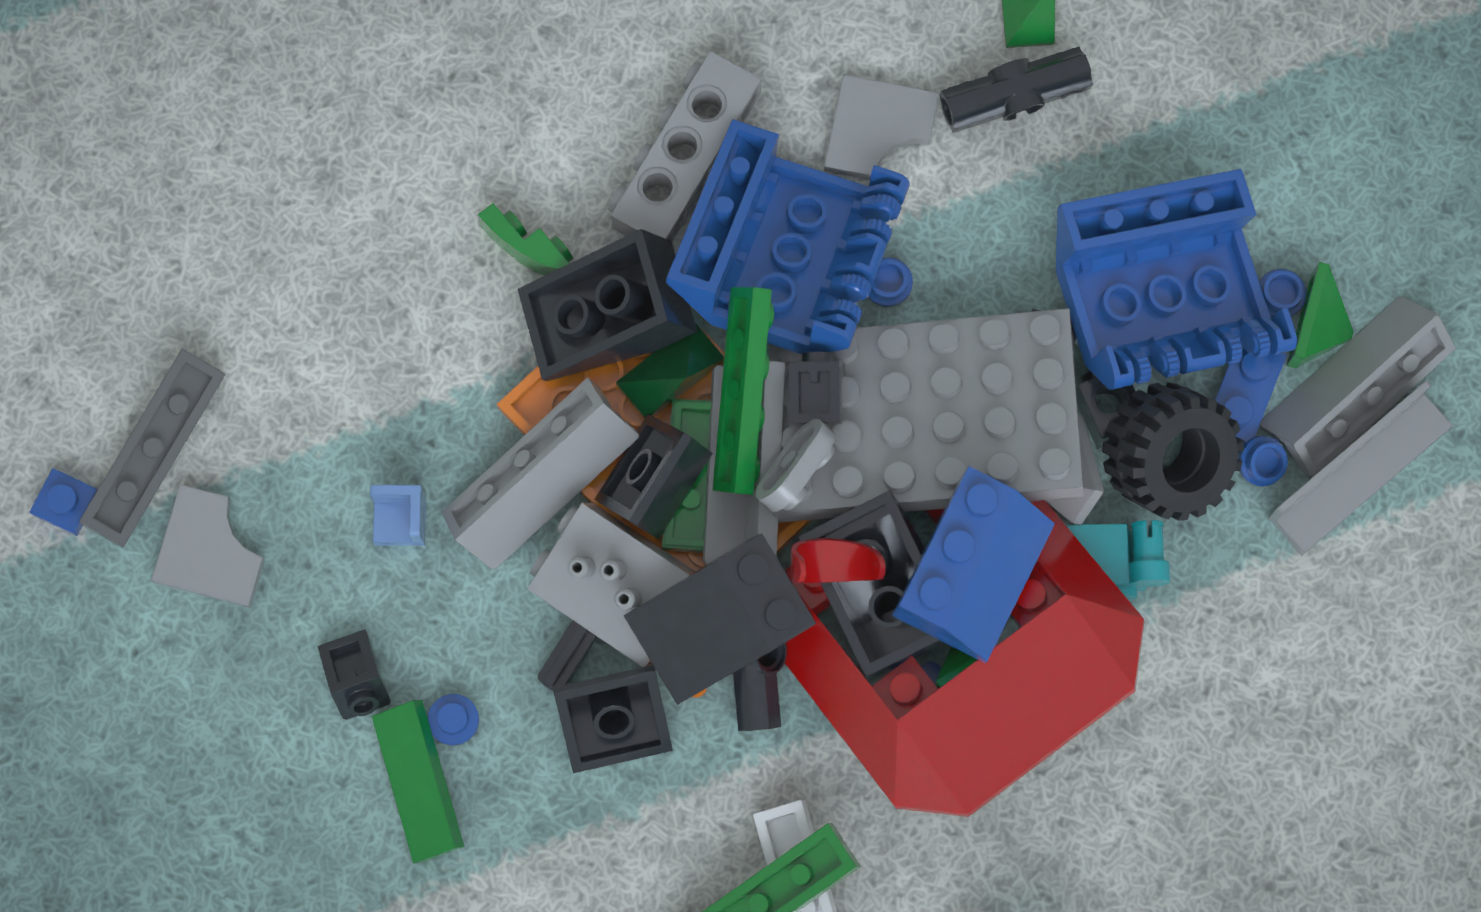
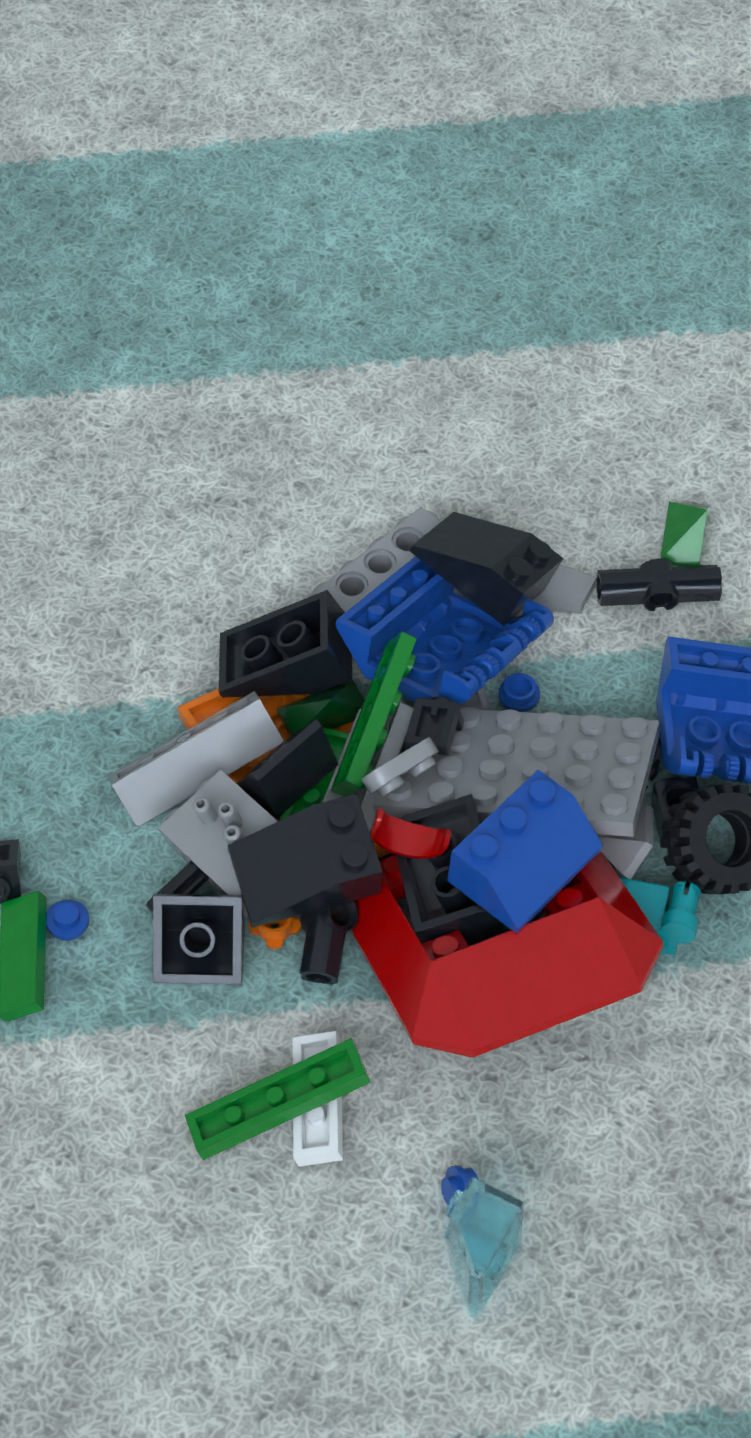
camera: 15 degrees right, 25 degrees down
(398, 515) = (75, 764): medium blue panel -> none
(534, 252) = (228, 604): green slope -> none
(813, 124) = (489, 562): none -> black slope

